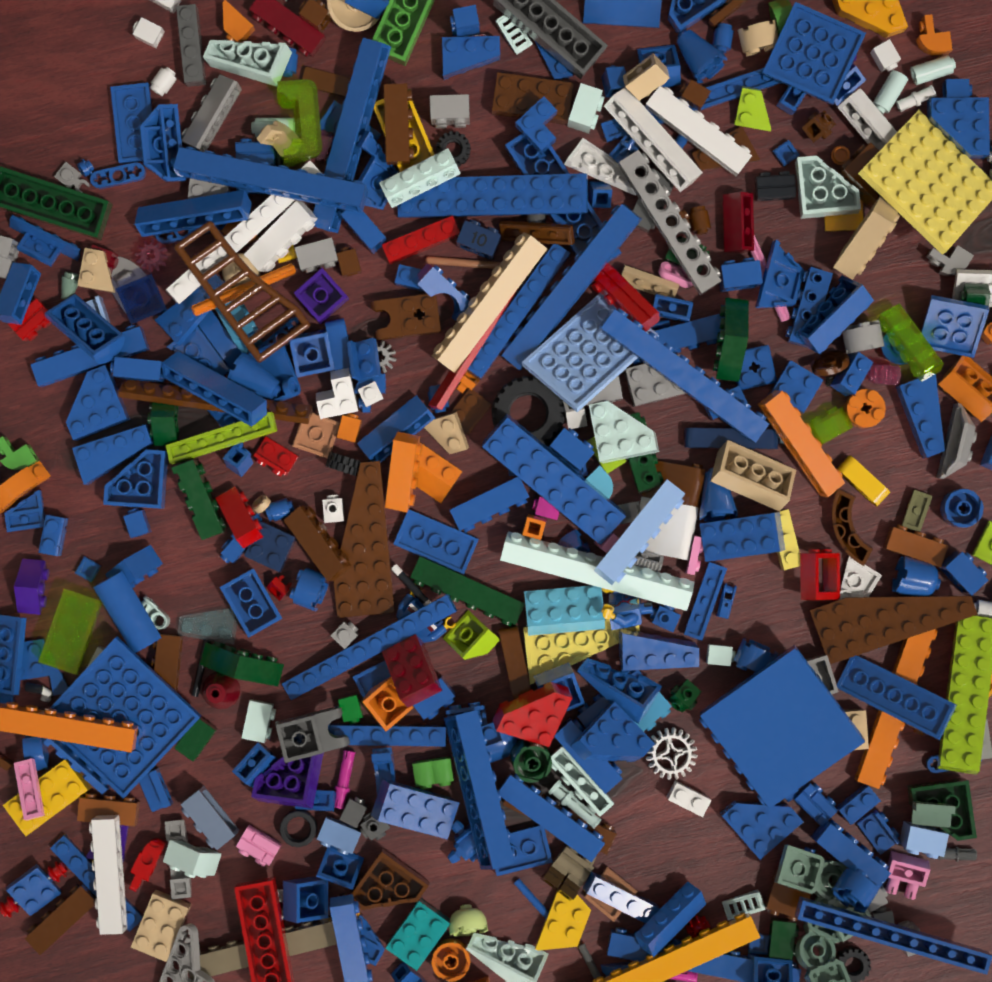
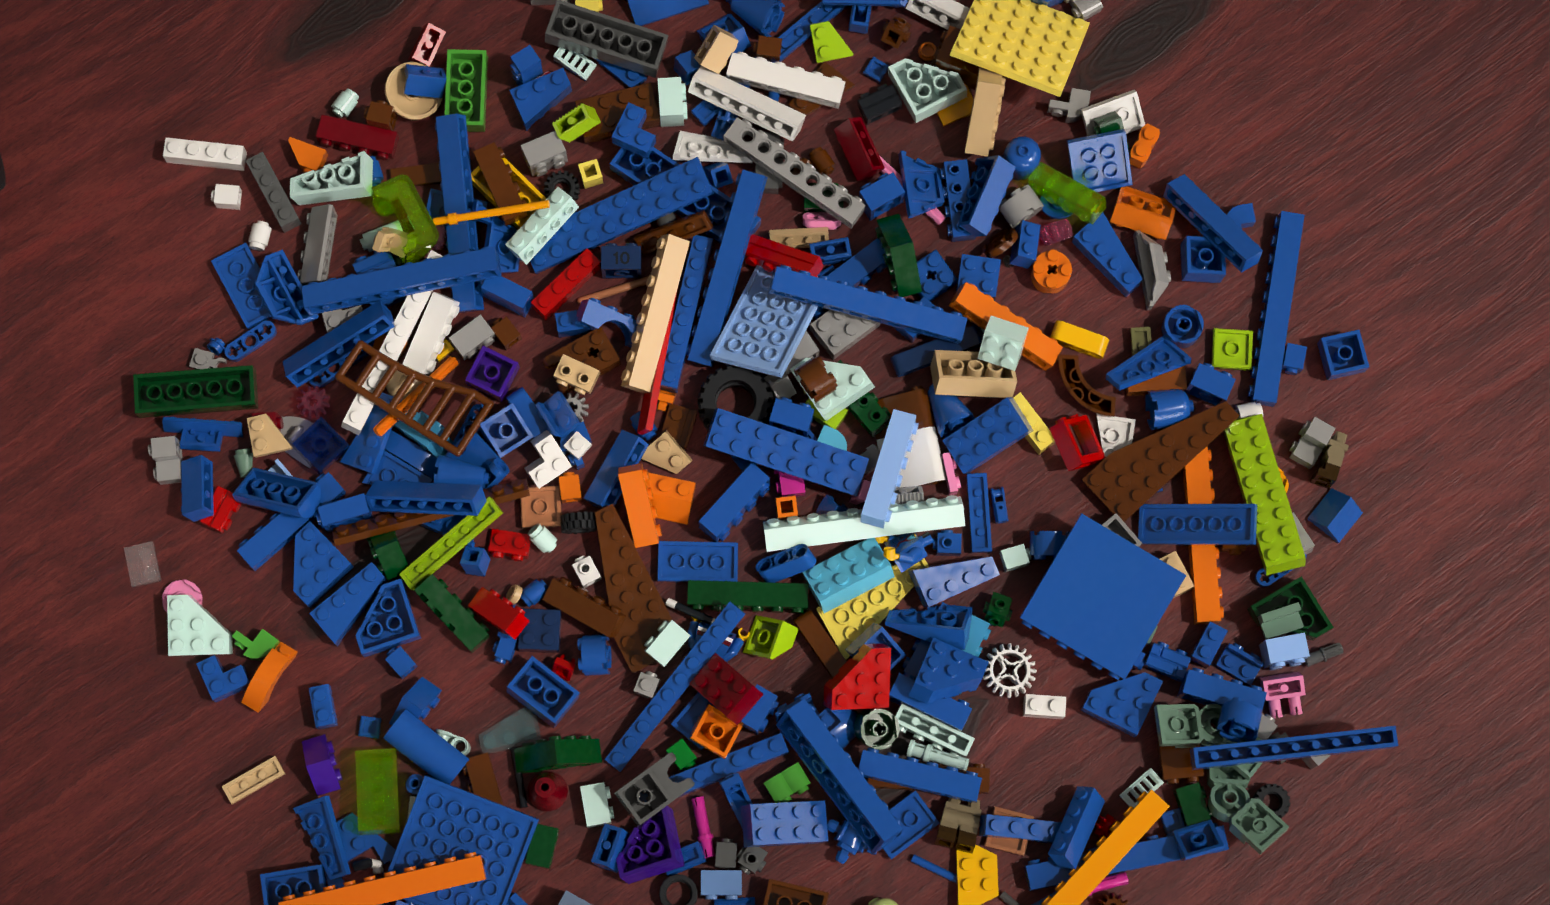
camera: 30 degrees left, 10 degrees down
(27, 514) = (289, 698): blue wing -> none
(103, 636) = (413, 784): none -> blue brick
(306, 464) = (542, 538): none -> light aqua brick
(341, 140) = (454, 218): none -> light orange bar
(376, 606) = (666, 643): none -> light aqua brick
(395, 330) = (576, 374): none -> tan brick
(484, 146) = (590, 173): none -> light yellow brick
(489, 95) = (576, 122): none -> lime brick
(513, 577) = (786, 563): none -> blue beam
(606, 427) = (816, 379): none -> reddish brown brick
(791, 460) = (1003, 343): none -> light aqua brick
(831, 425) = (1026, 300): clear neon green brick -> none
(885, 290) = (1024, 155): none -> blue cylinder
(919, 530) = (1148, 363): none -> blue wing

